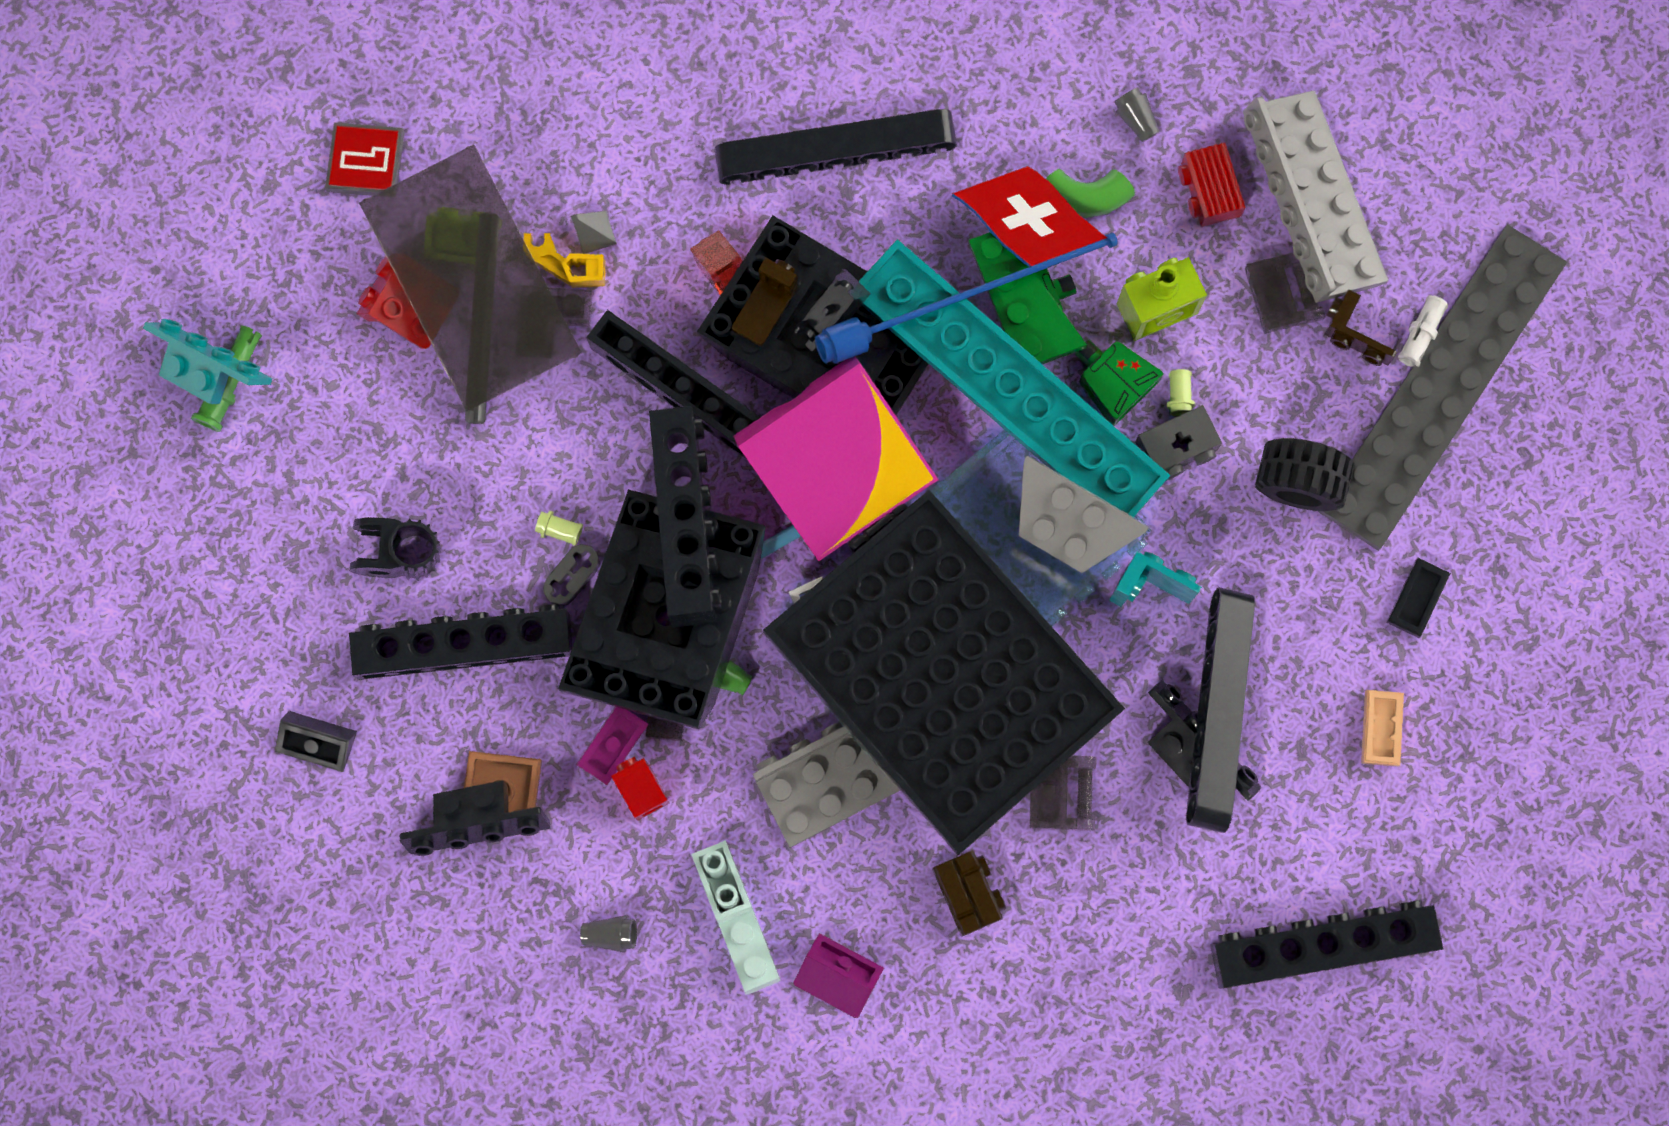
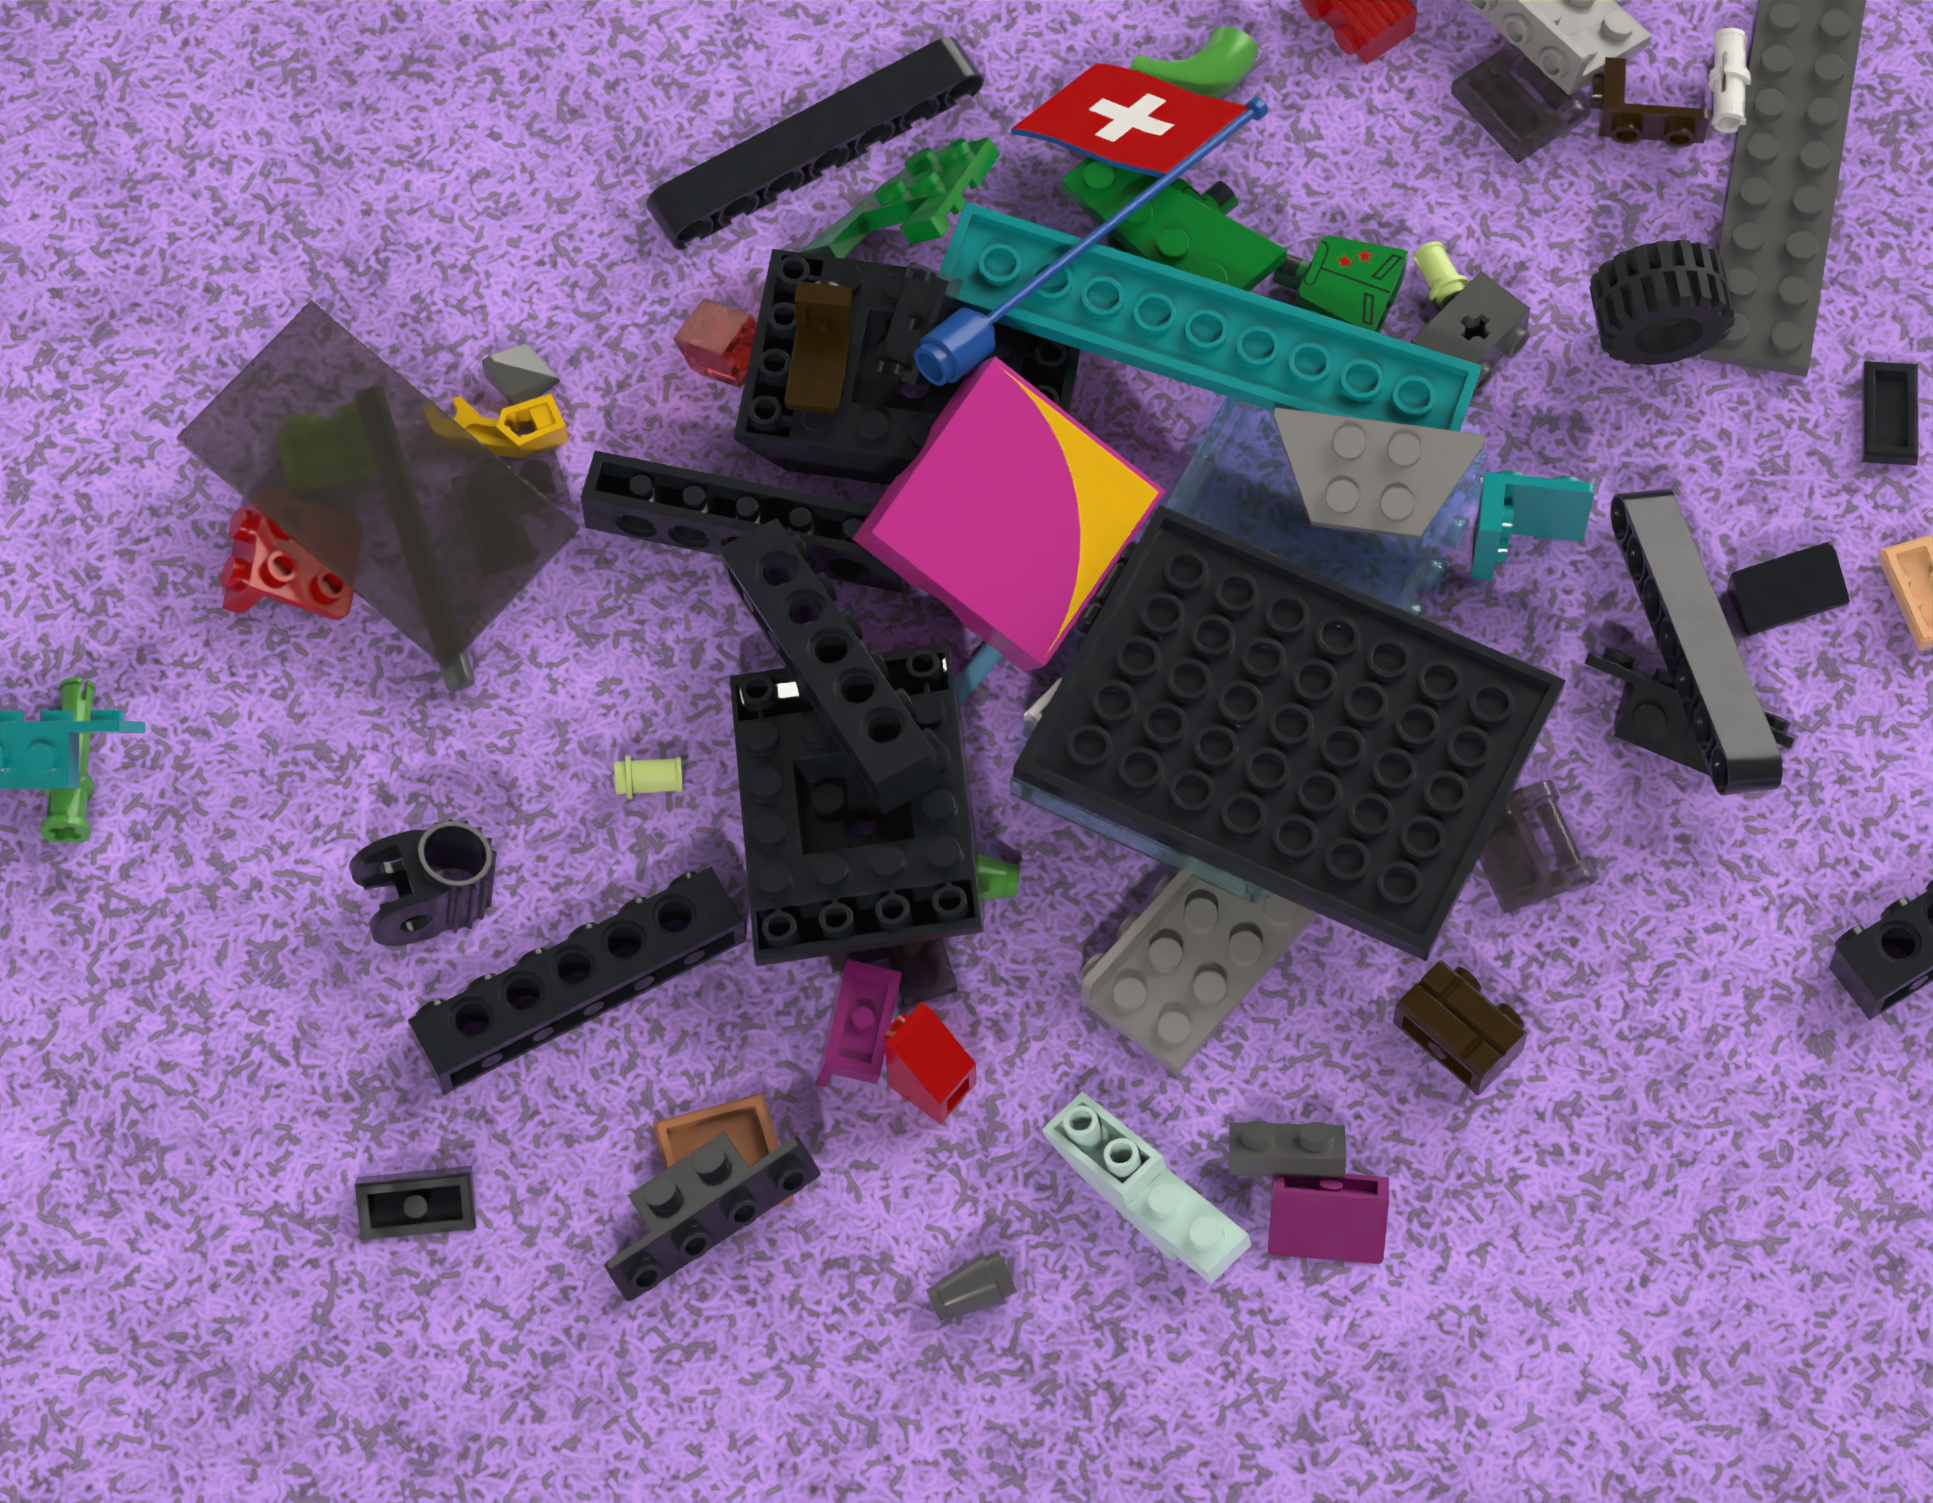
camera: 25 degrees left, 15 degrees down
(364, 158) = (142, 401): red tile -> none
(565, 569) = (682, 827): dark grey beam -> none
(830, 927) = (1287, 1149): none -> dark grey plate
(877, 211) = (915, 196): none -> green wing
(1161, 297) = (1358, 159): lime brick -> none
(1299, 691) = (1788, 588): none -> black slope

